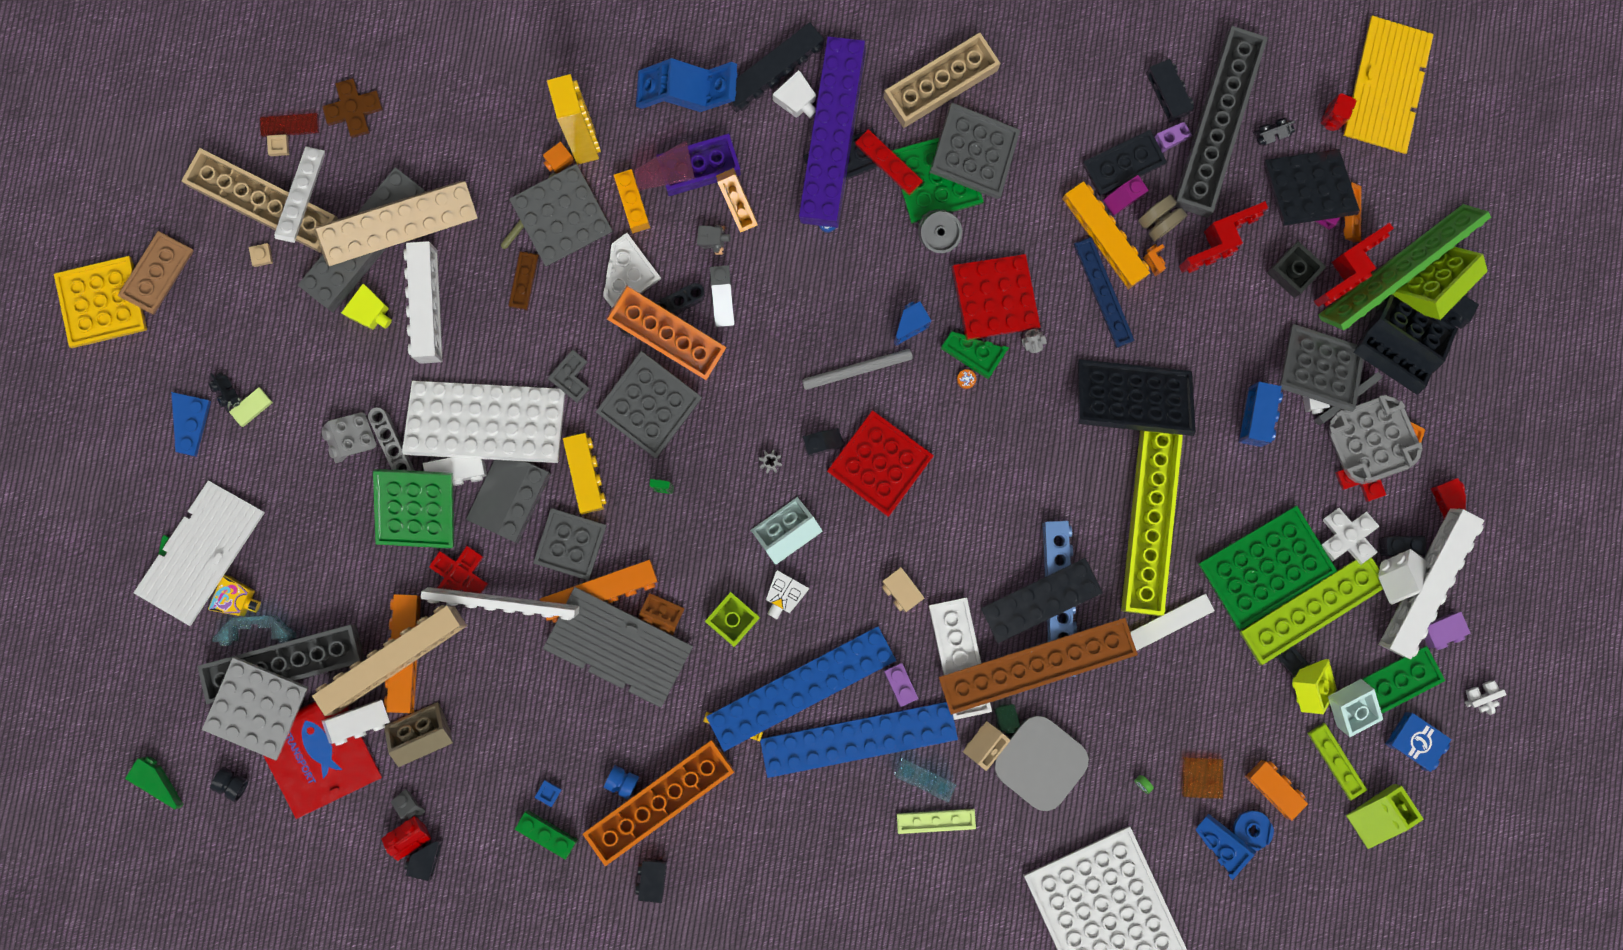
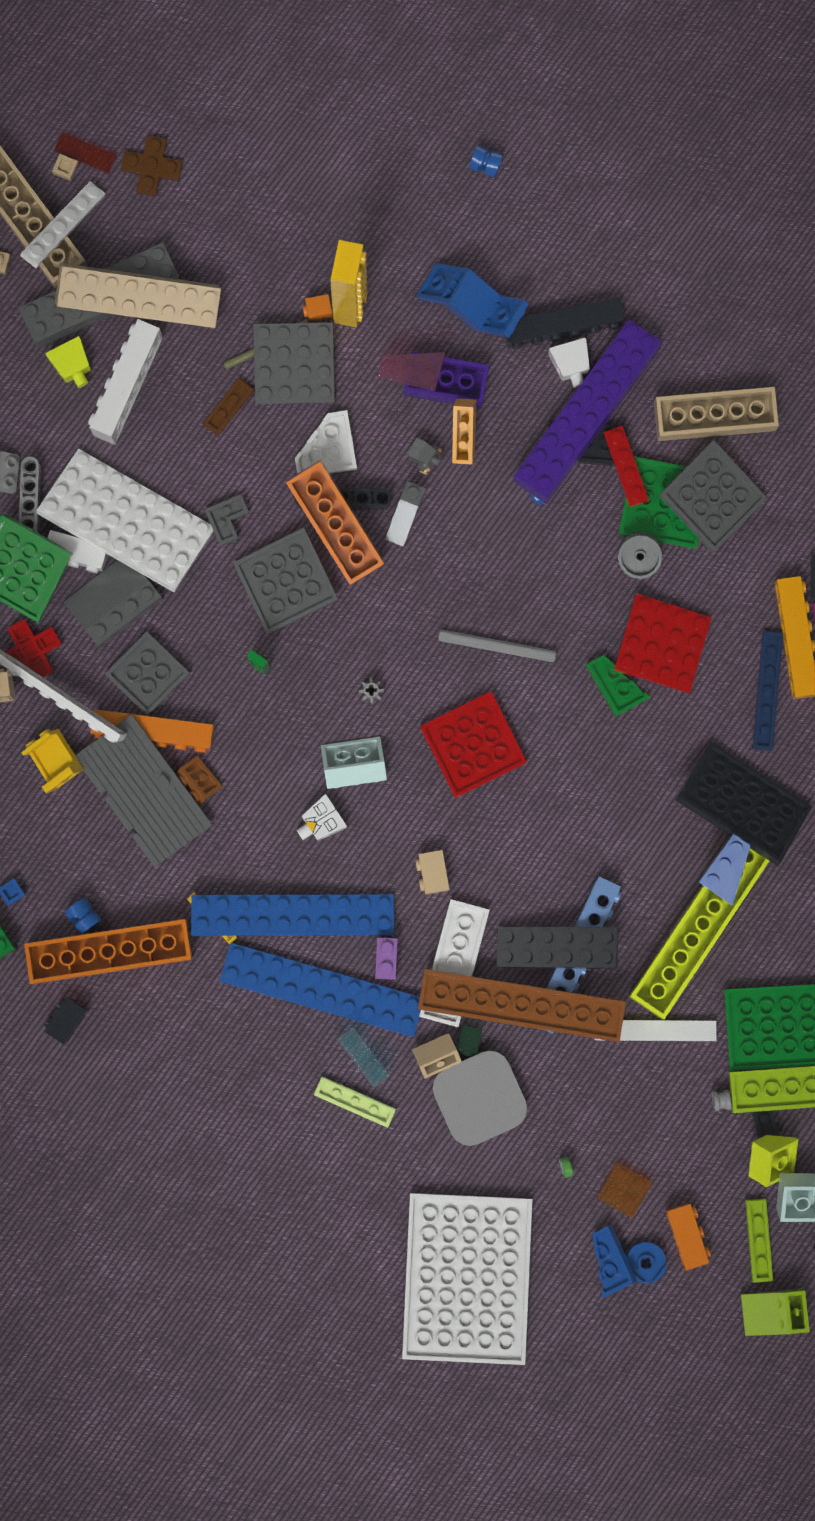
camera: 30 degrees right, 0 degrees up
(526, 659) = (53, 759): none -> yellow panel
(583, 473) = (193, 614): yellow brick -> none
(631, 201) = (366, 383): light orange brick -> none
(732, 619) = (261, 819): lime brick -> none
(822, 442) = (429, 697): black slope -> none
(912, 322) = (569, 627): blue slope -> none
(966, 379) = (594, 706): orange tile -> none
(1034, 341) = (676, 703): light grey gear -> none
(1152, 459) = (727, 868): none -> wing
(1245, 659) = (721, 1100): none -> light grey wheel

